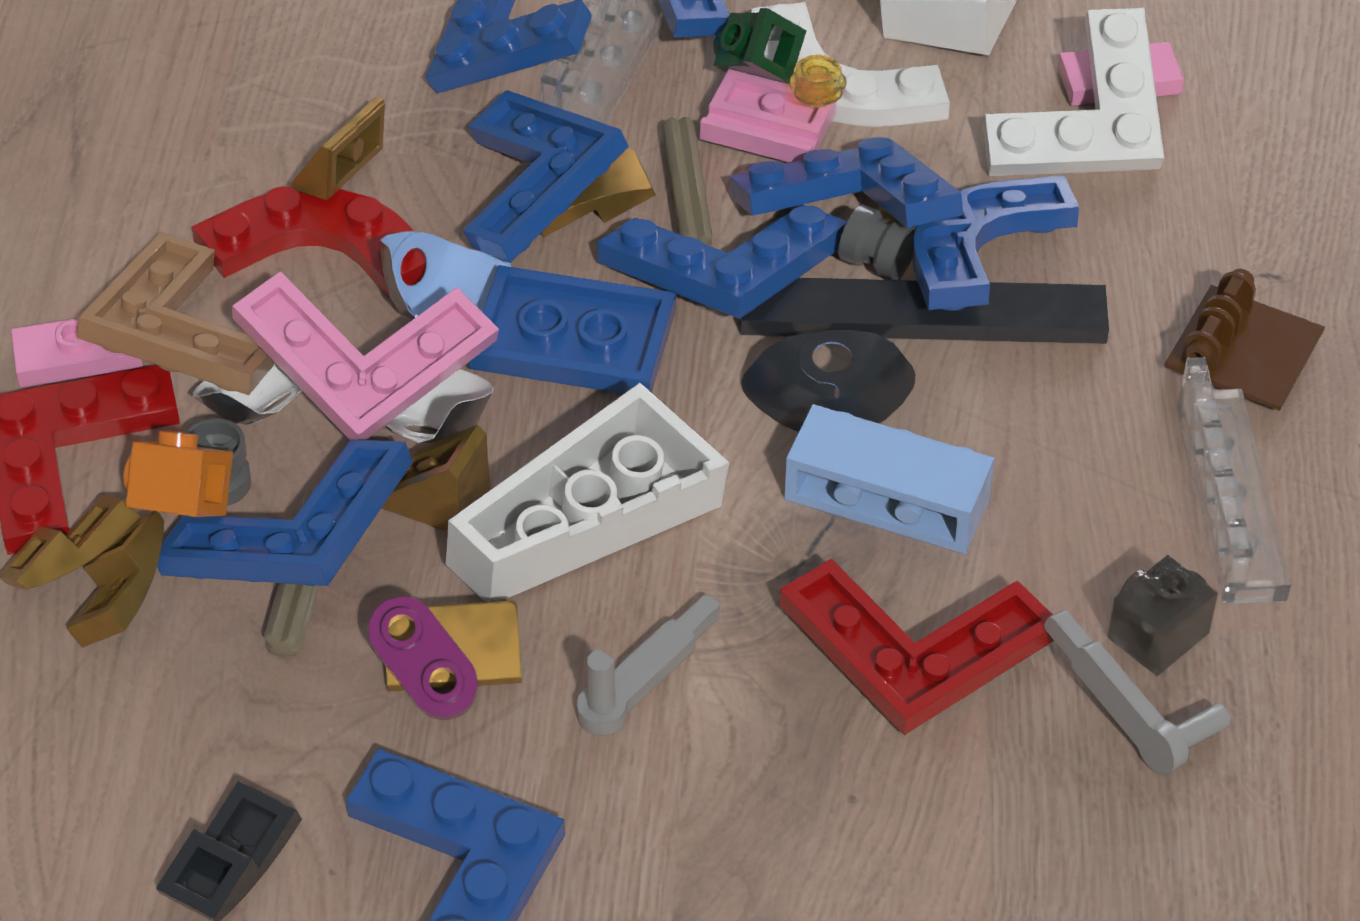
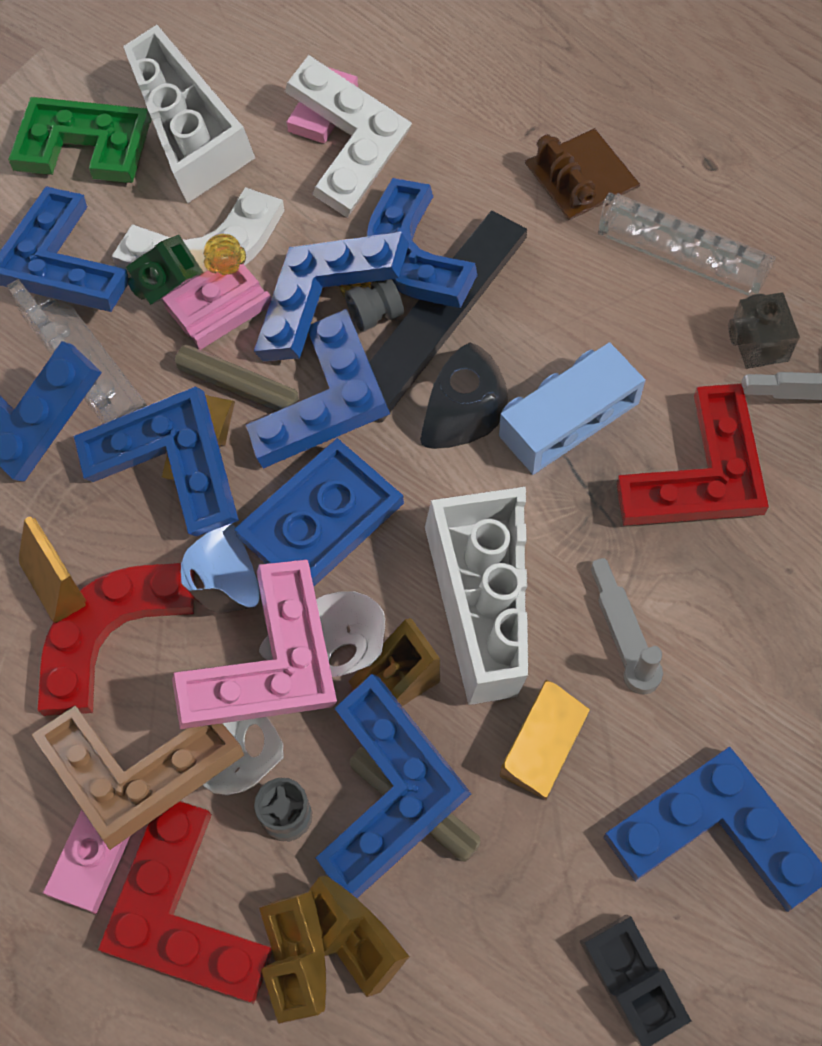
camera: 55 degrees left, 15 degrees up
(178, 476) = (307, 847): orange brick -> none
(423, 656) = (556, 760): magenta plate -> none

